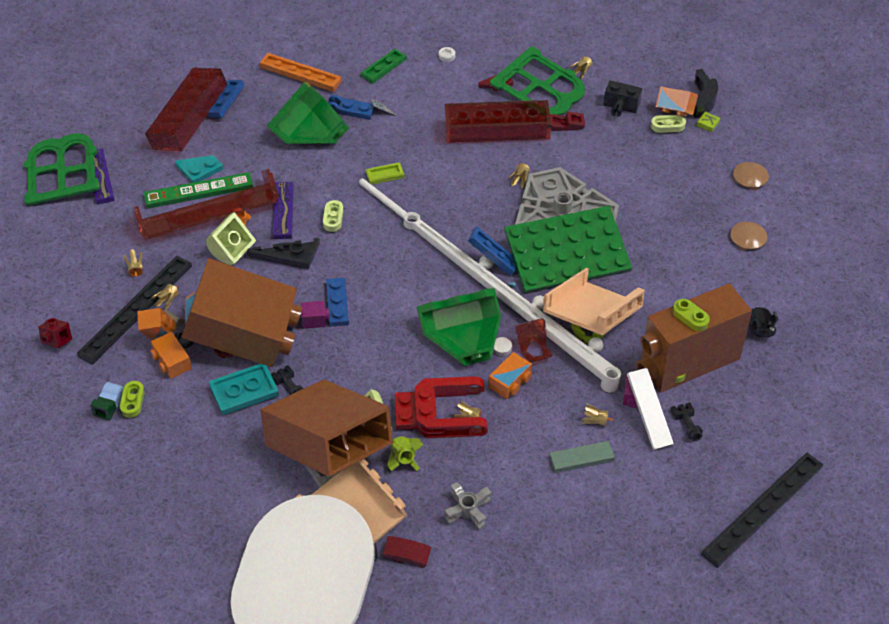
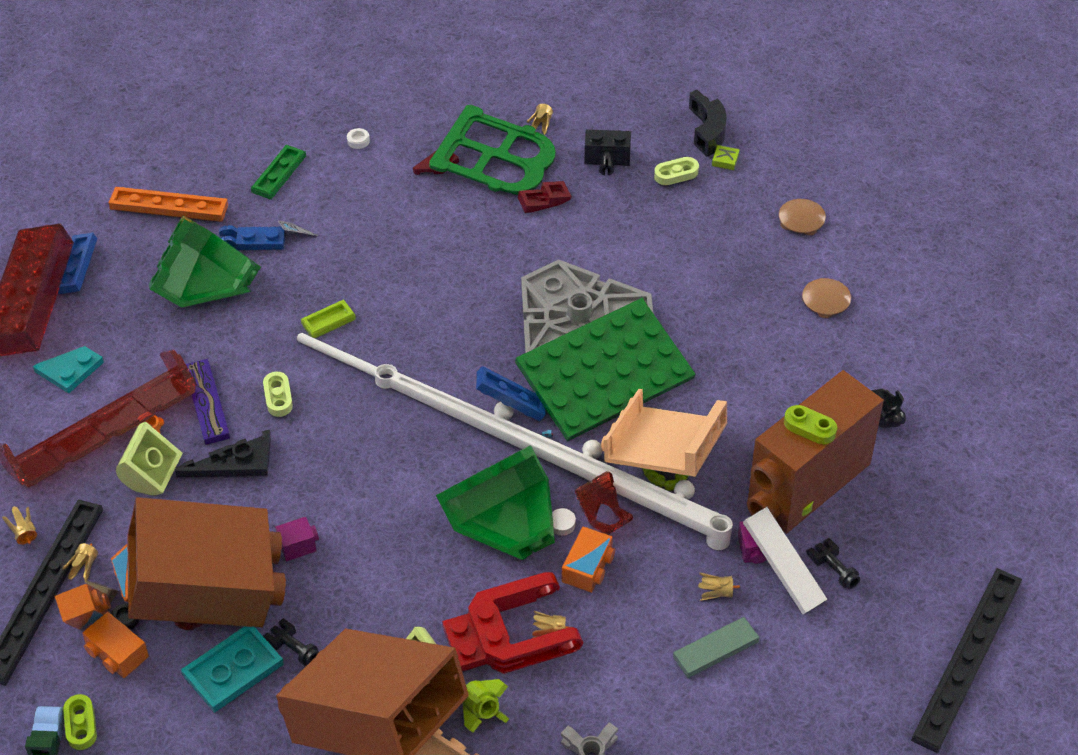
camera: 15 degrees left, 0 degrees up
(198, 190) = (77, 400): green tile -> none
(337, 302) = (322, 512): blue plate -> none
(497, 121) = (456, 215): clear red brick -> none
(521, 172) = (509, 276): pearl gold piece -> none
(676, 100) = (679, 139): orange brick -> none

